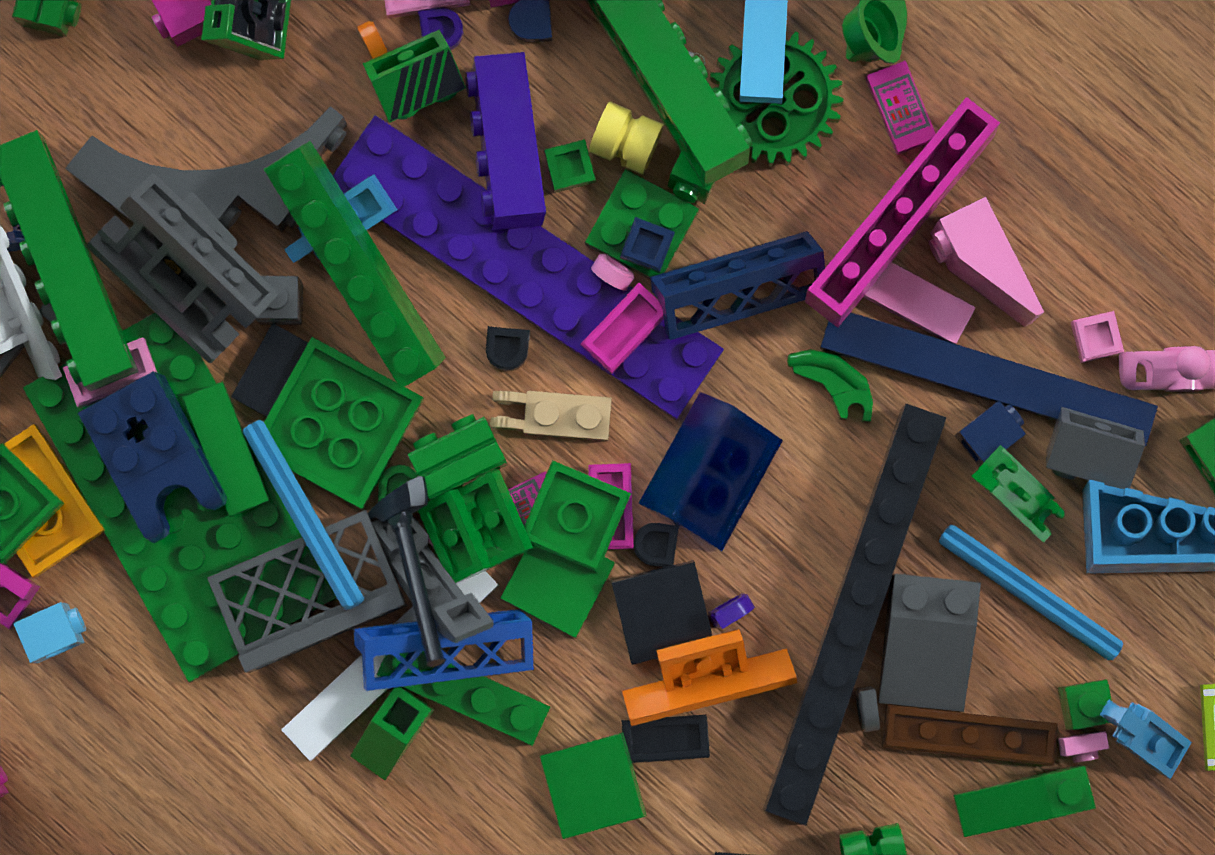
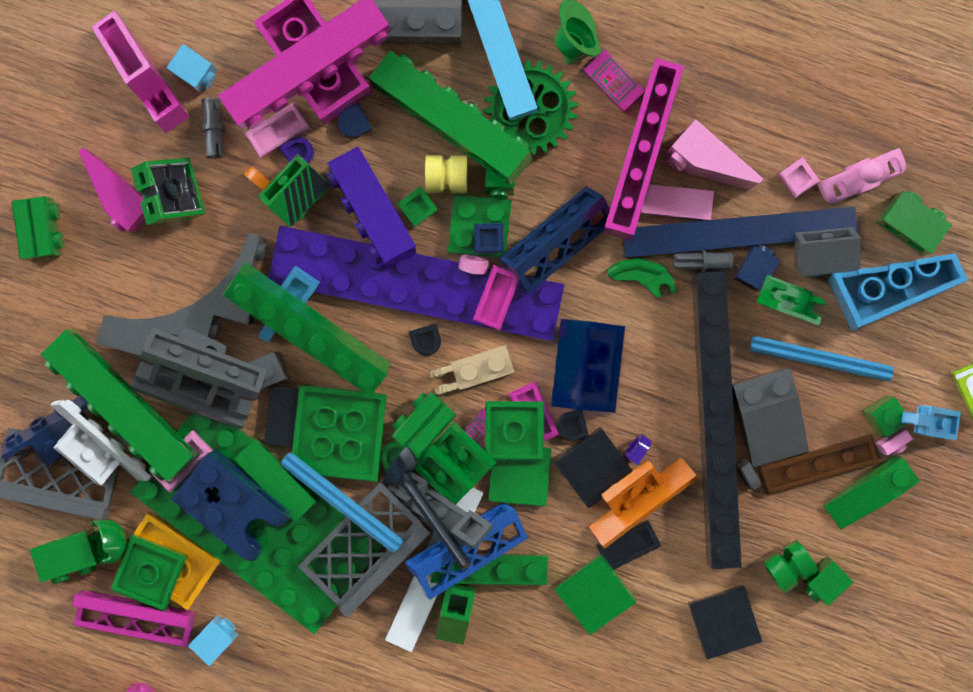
camera: 25 degrees left, 5 degrees up
(923, 395) = (703, 261): none -> dark grey axle

